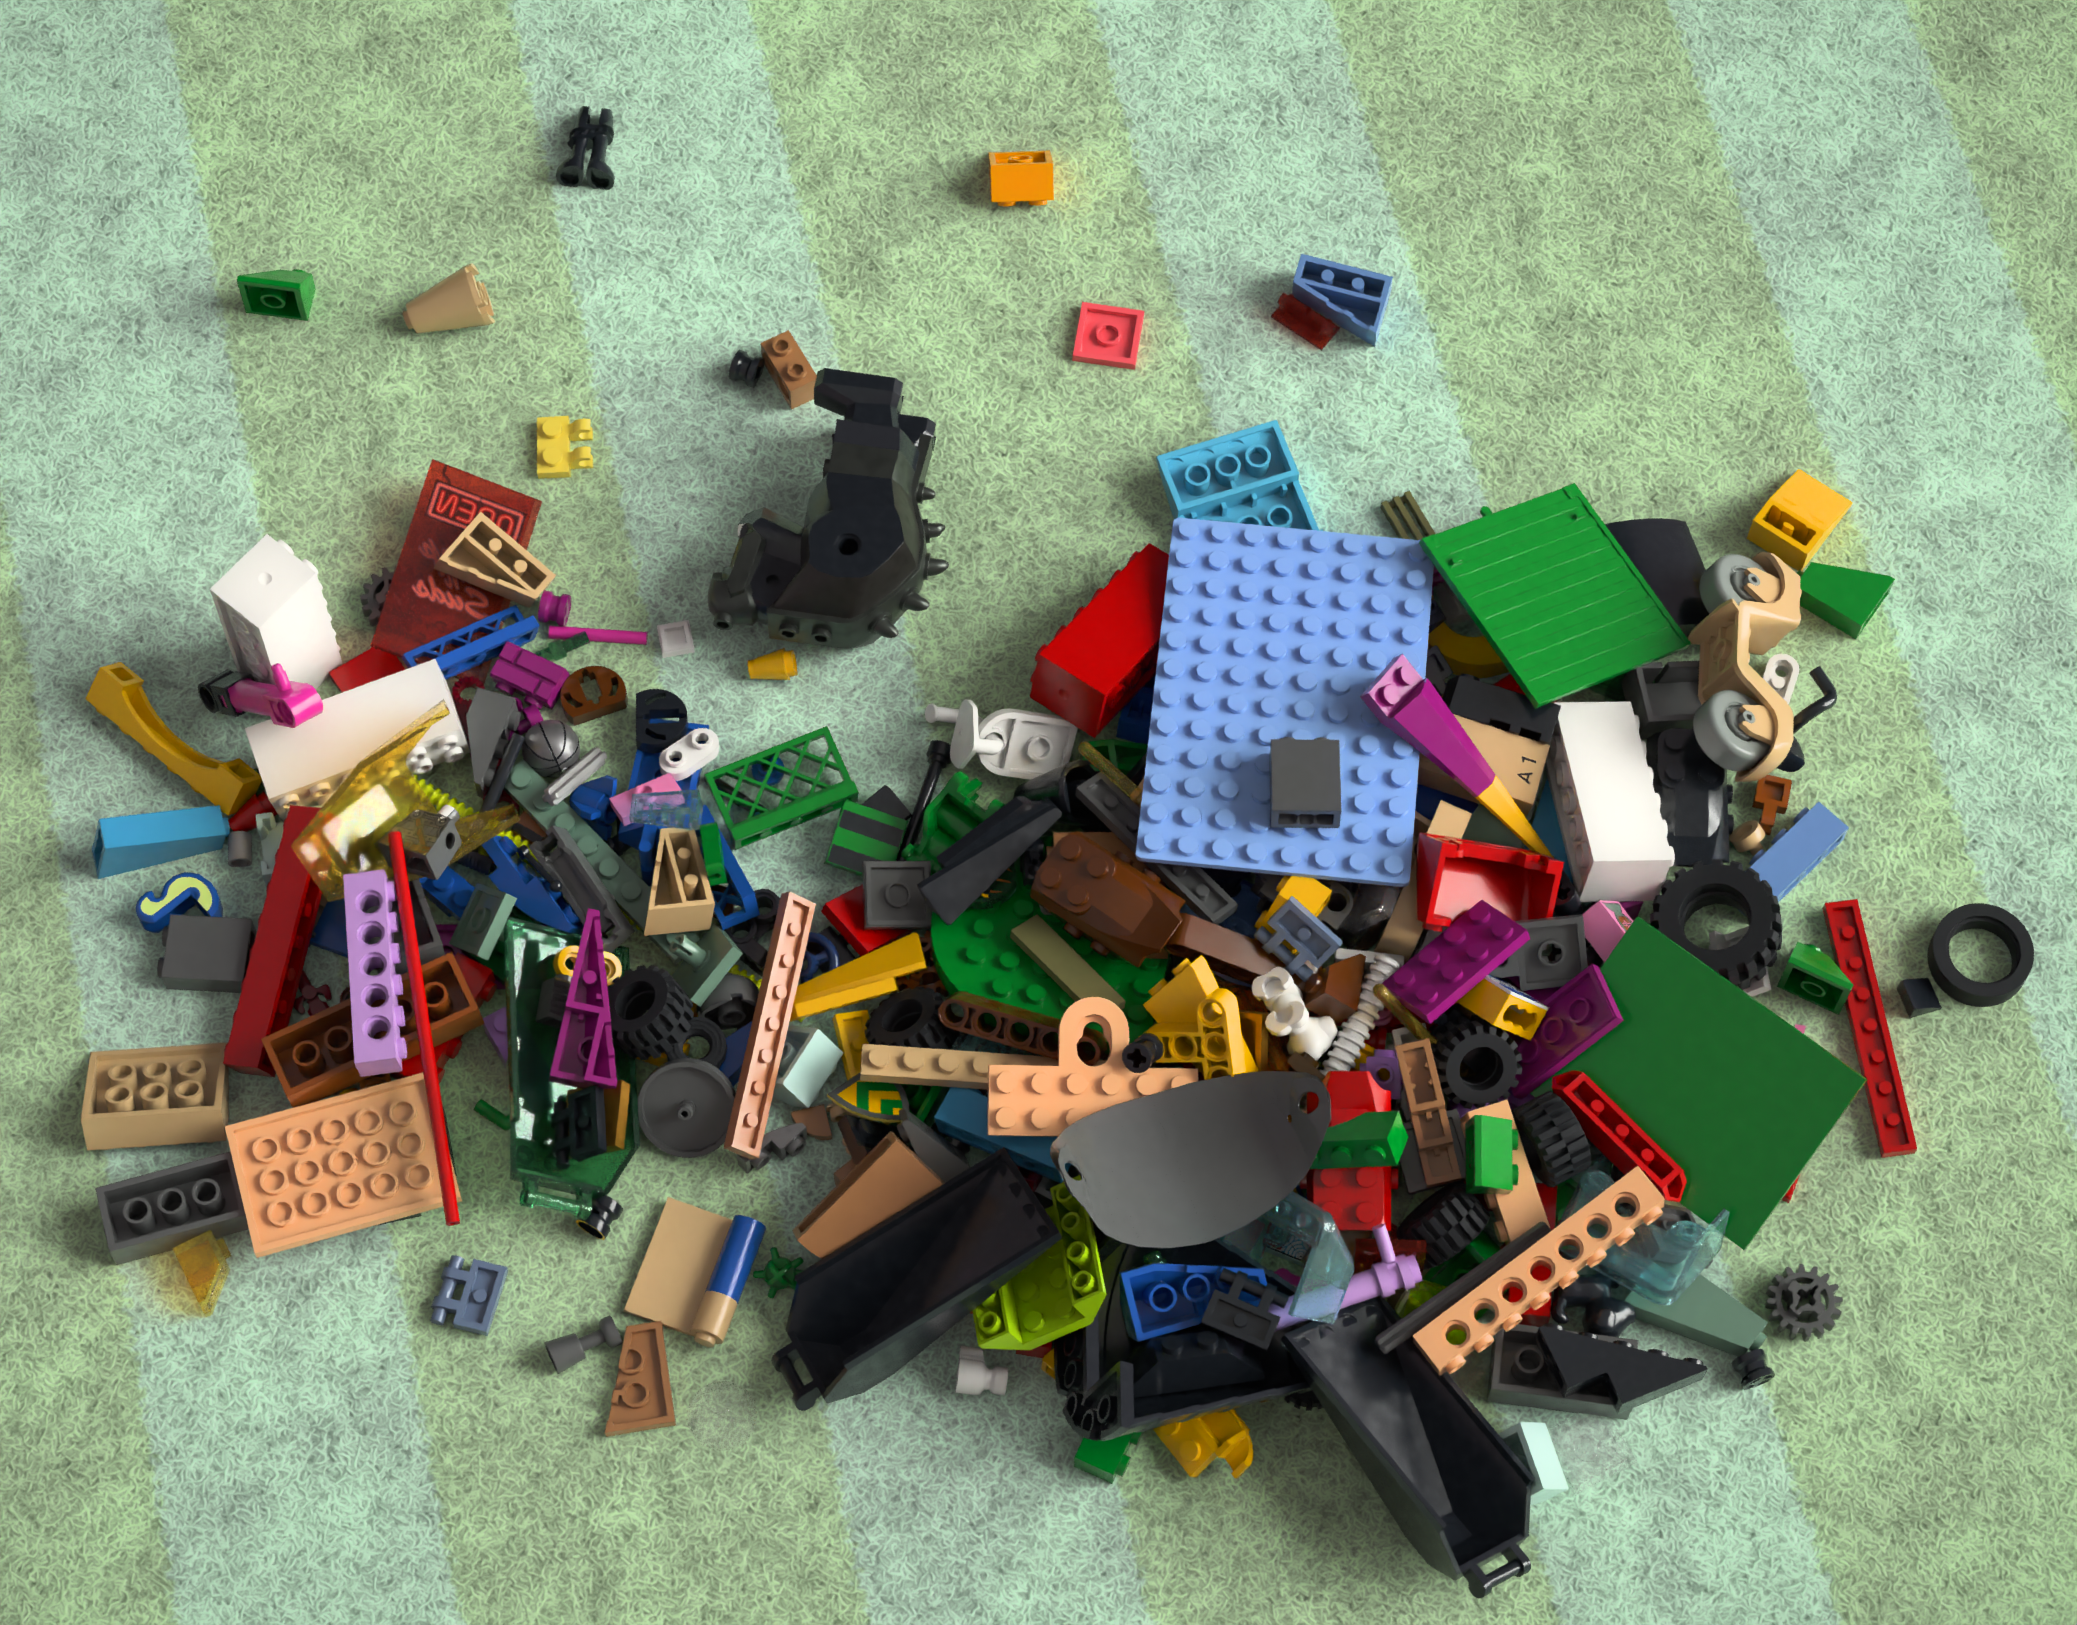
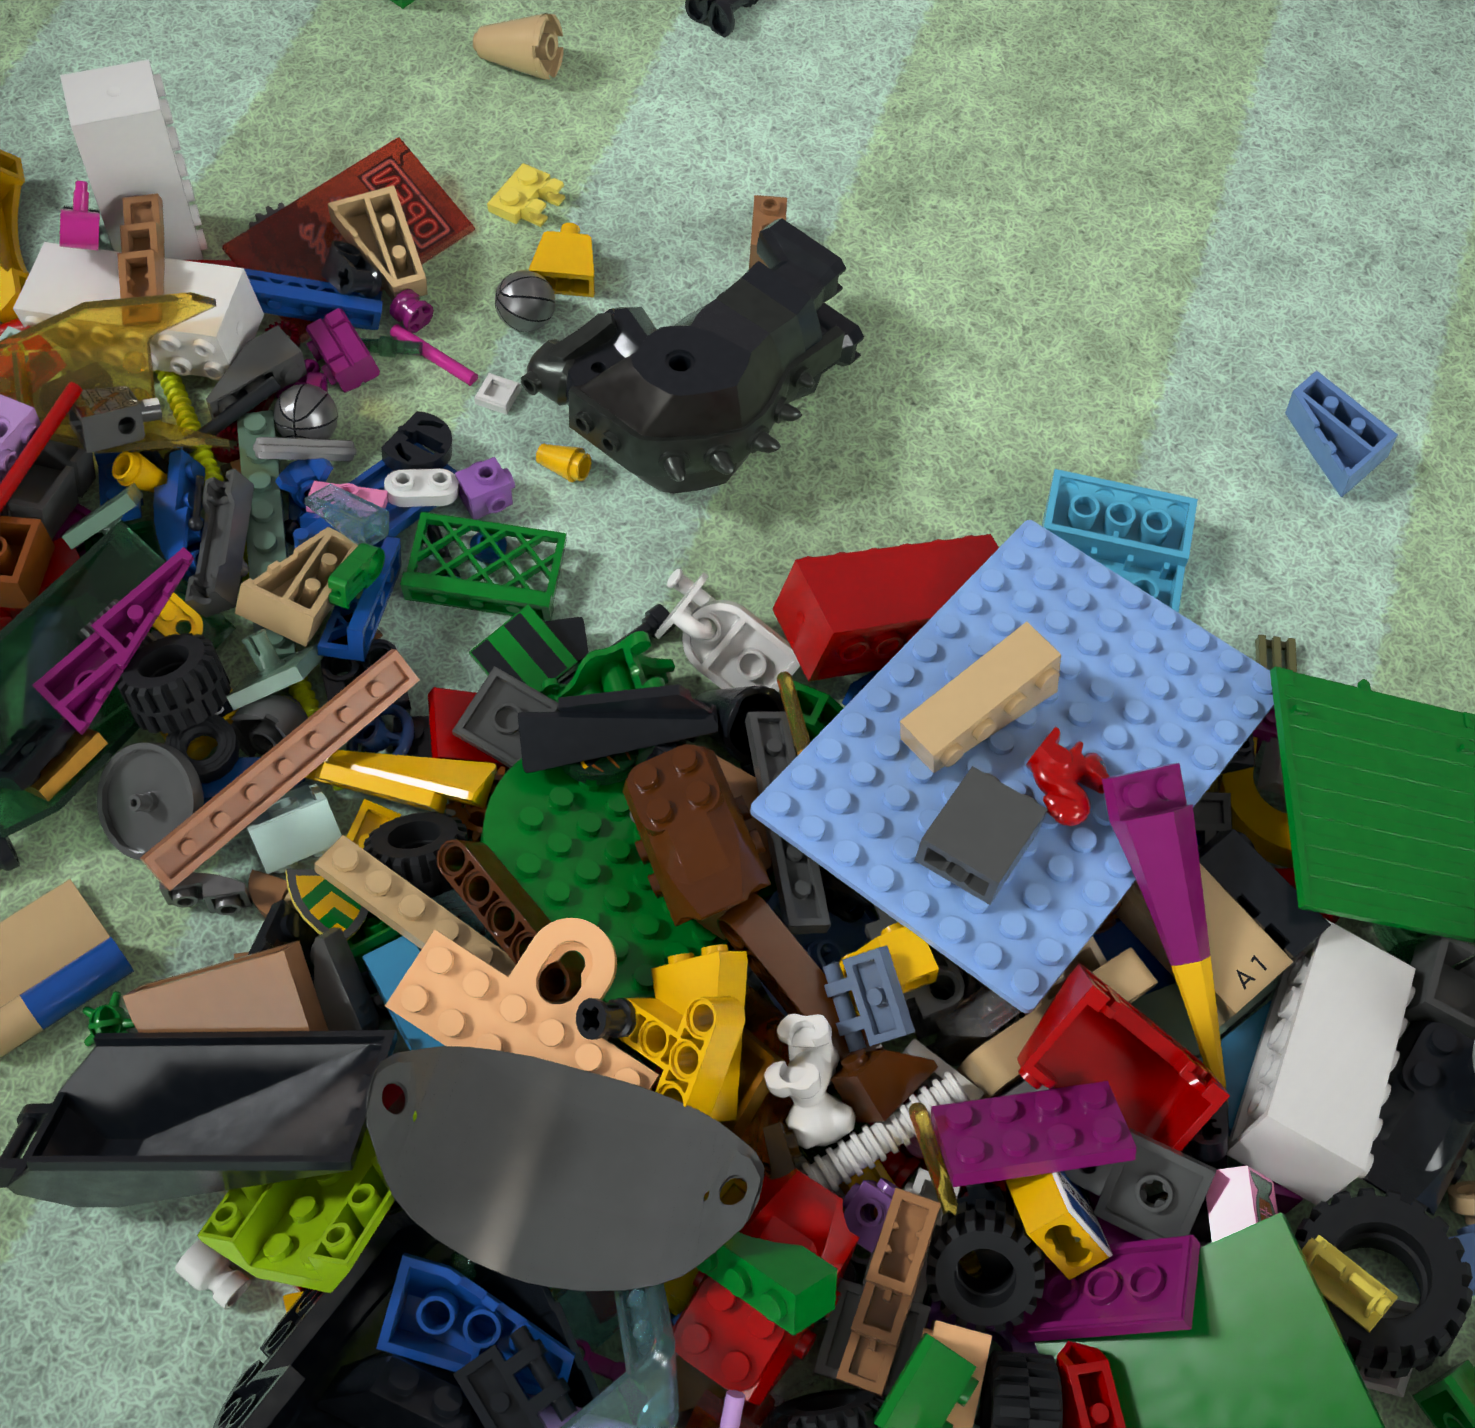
camera: 30 degrees right, 5 degrees down
(347, 694) = (142, 245): none -> medium nougat slope
(468, 872) = (136, 469): none -> yellow cone
(490, 605) = (351, 271): none -> black piece
(586, 709) = (395, 411): reddish brown piece -> none
(644, 547) = (525, 301): none -> flat silver piece
(645, 491) = (566, 261): none -> yellow torso
(735, 724) = (485, 488): none -> medium lavender brick
(746, 368) = (731, 215): black wheel -> none
(1021, 177) = (1089, 193): light orange slope -> none
(1062, 962) = (609, 881): olive tile -> none
(1108, 335) = (1083, 357): coral tile -> none
(1244, 685) = (983, 698): none -> tan wedge
(1304, 321) = (1284, 438): clear red hinge -> none
(1326, 708) = (1058, 777): none -> red animal
(1699, 937) = (1347, 1284): none -> light yellow hinge

